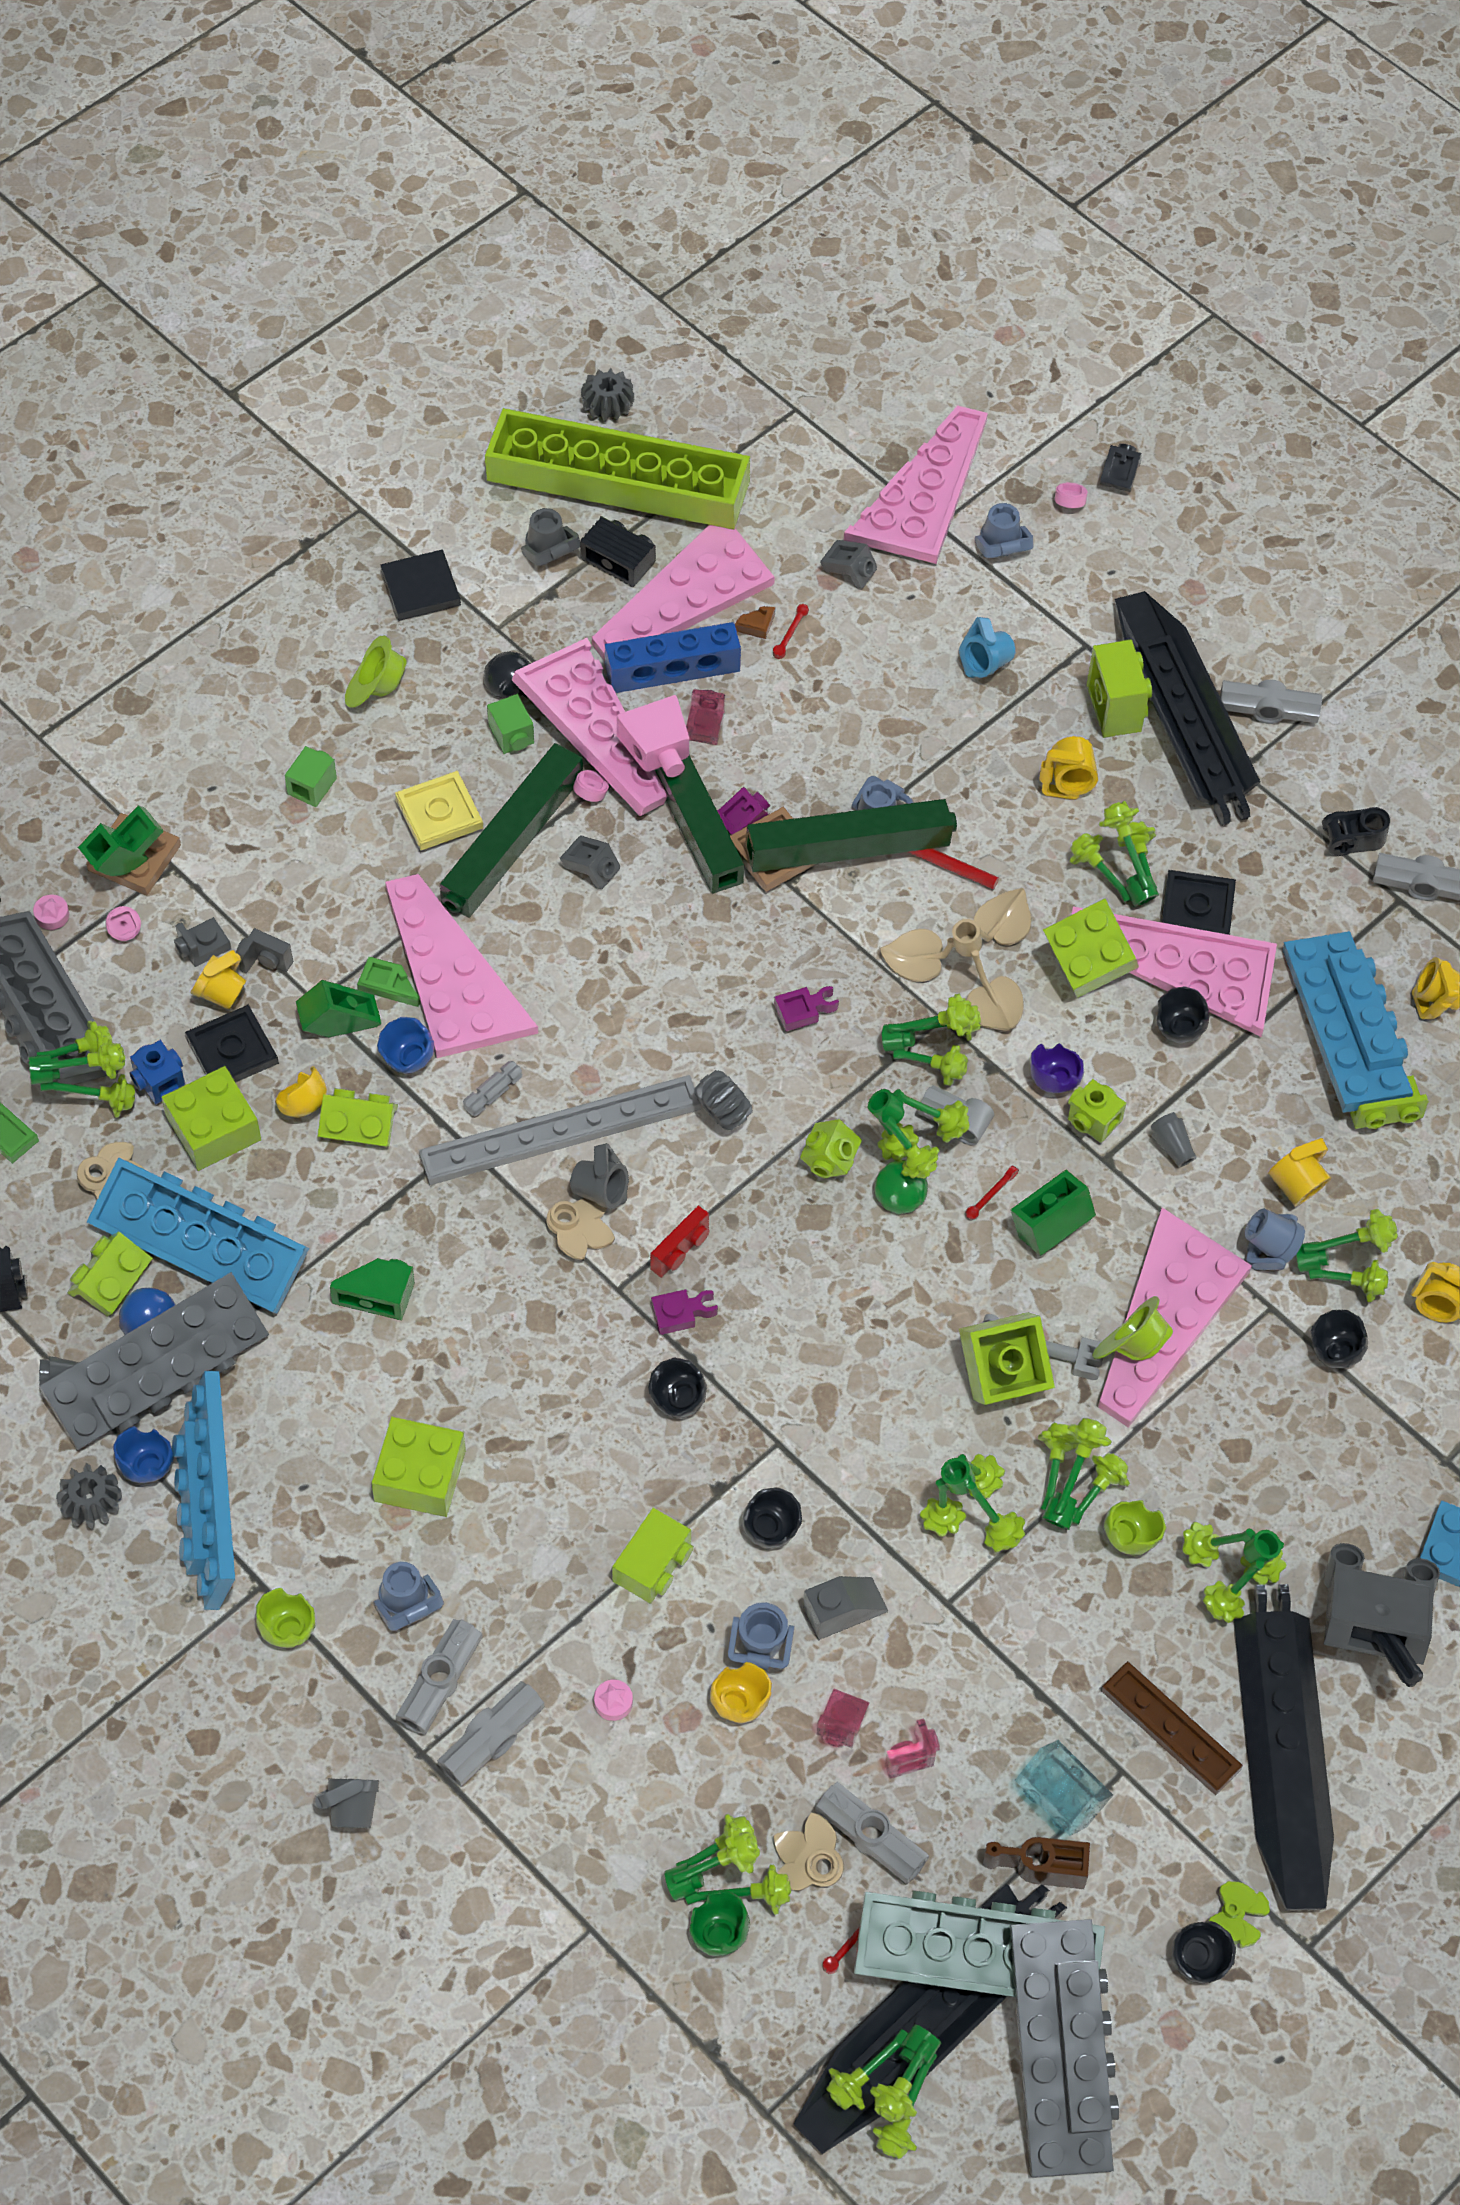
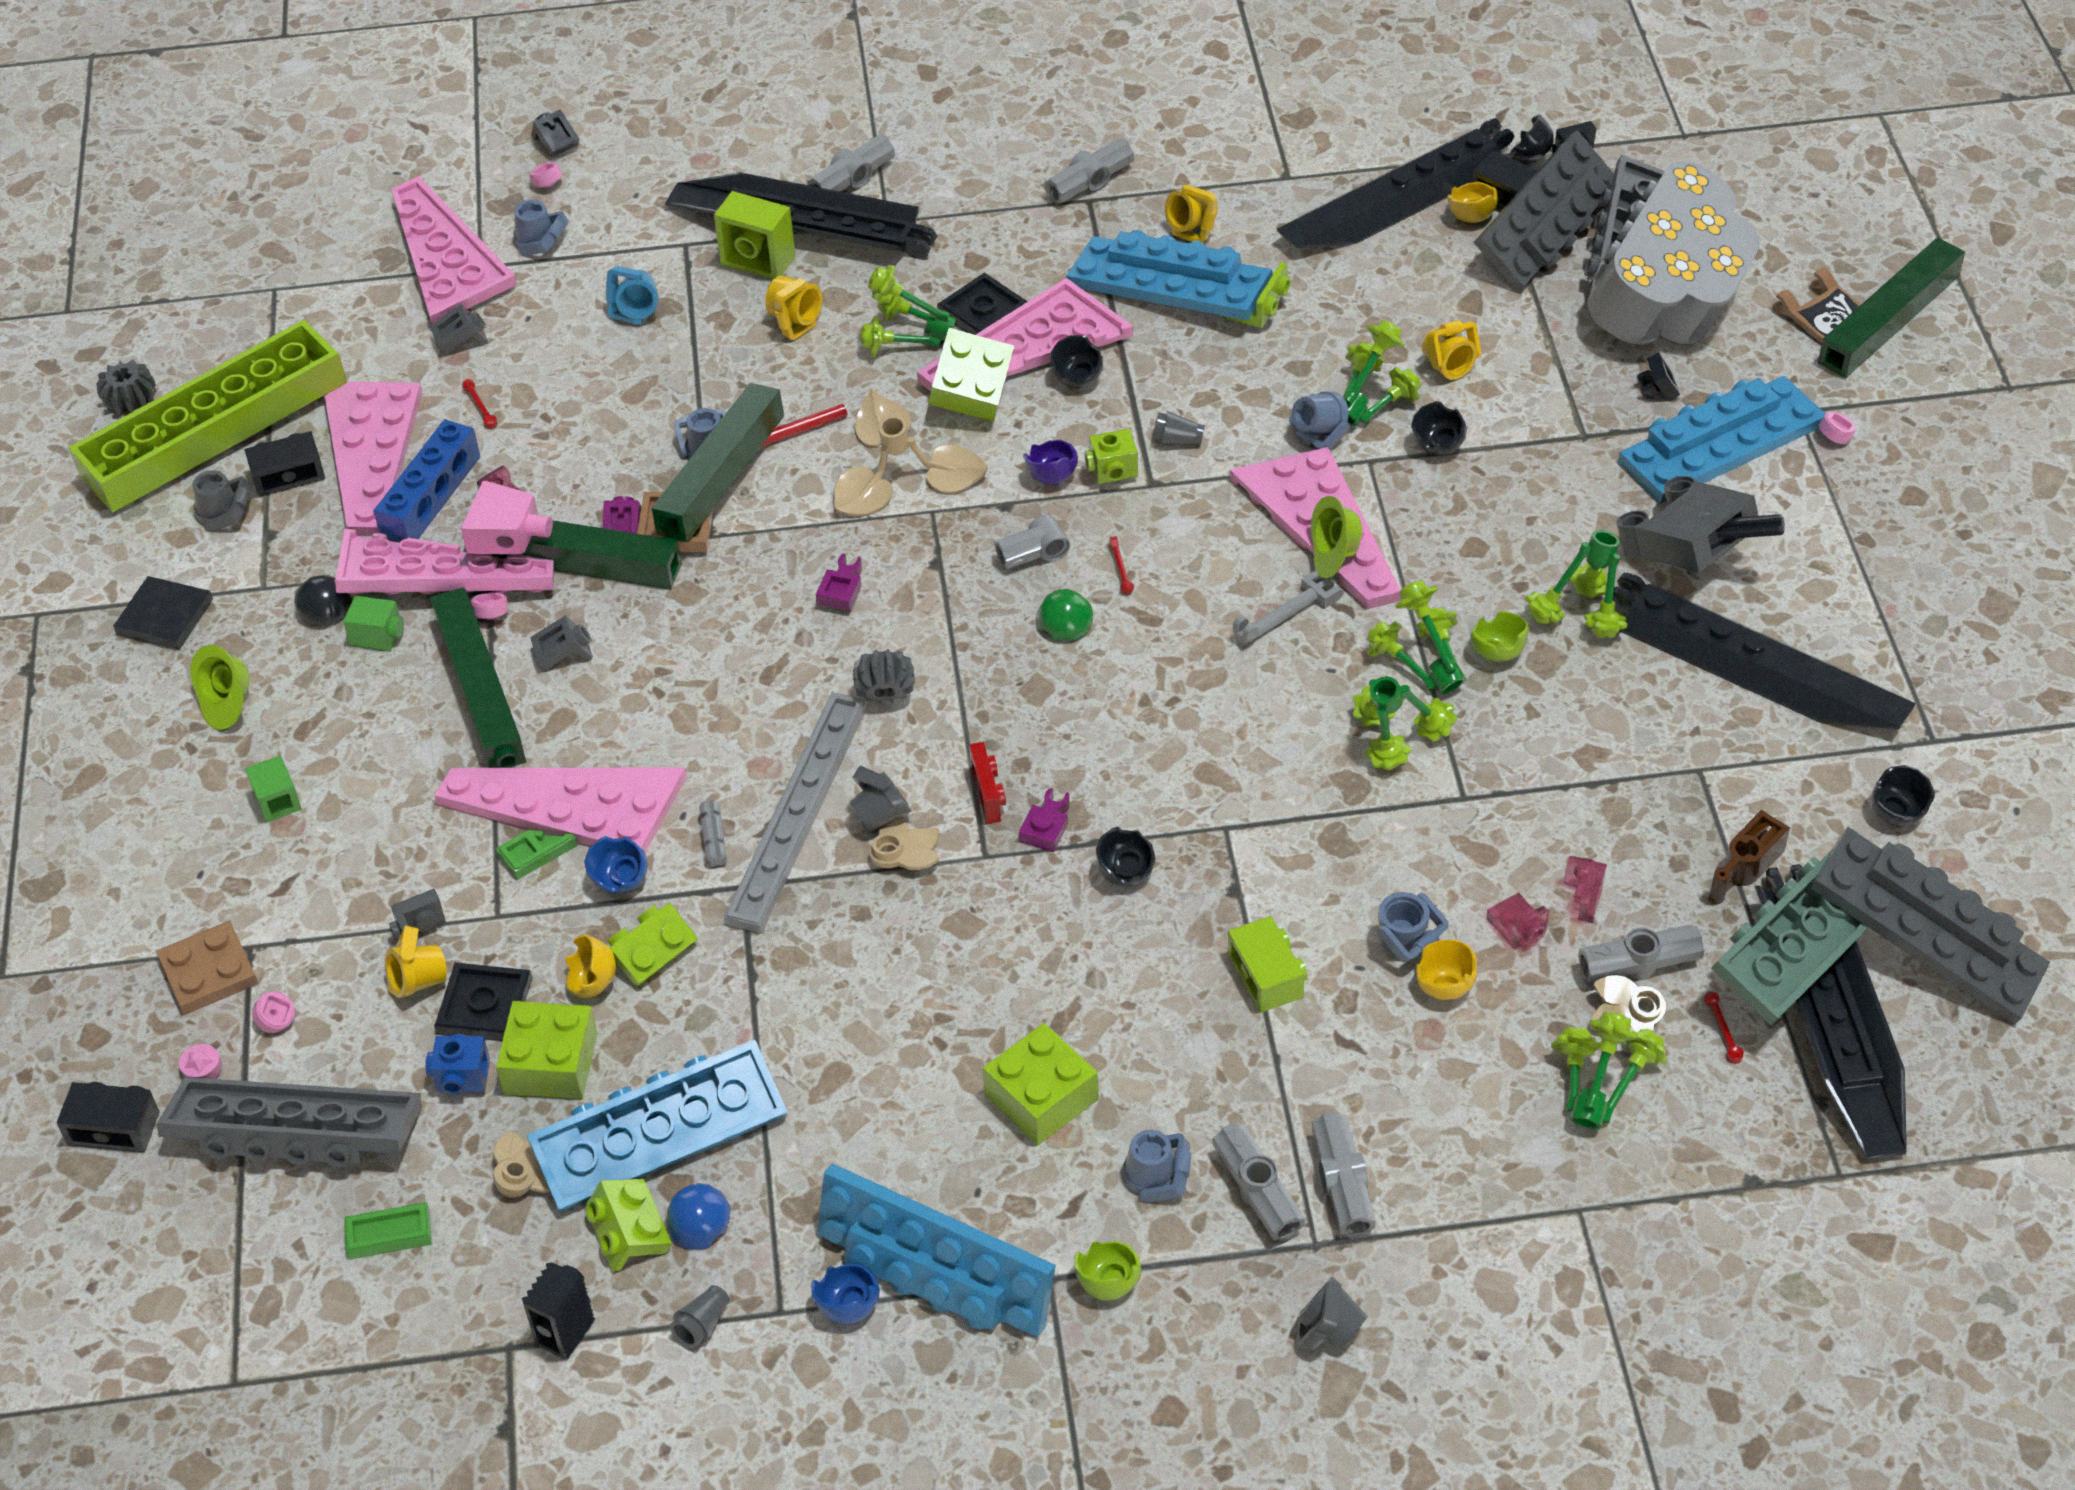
camera: 50 degrees left, 10 degrees down
(102, 1053) = (382, 1138): plant -> none
(103, 1499) = (847, 1377): dark grey gear -> none
(123, 848) = (205, 954): green brick -> none
(154, 1362) = (758, 1234): dark grey plate -> none
(201, 941) = (353, 963): dark grey bracket -> none
(337, 1010) = (528, 899): green slope -> none
(376, 1288) = (836, 1020): green slope -> none
(439, 810) = (403, 719): light yellow plate -> none
(613, 1700) = (1376, 1070): bright pink tile -> none
(720, 1924) = (1651, 1101): green hair -> none
(756, 622) = (449, 411): dark orange tile -> none
(772, 1517) = (1300, 860): black hair -> none
(830, 1149) = (993, 635): lime brick -> none
(842, 1604) = (1415, 863): dark grey slope -> none
(891, 2101) = (1921, 1047): lime plant -> none
(901, 1141) = (1047, 541): lime plant -> none
(958, 1016) = (956, 488): plant -> none
(1006, 1358) = (1289, 624): lime brick -> none
(1053, 1212) = (1180, 529): green brick -> none
(1063, 1788) = (1697, 803): clear light blue brick -> none
(1171, 1728) = (1686, 717): reddish brown tile -> none
(1237, 1901) = (1869, 758): lime piece -> none
(1300, 1172) = (1278, 370): yellow piece -> none
(1355, 831) = (1011, 182): black piece -> none

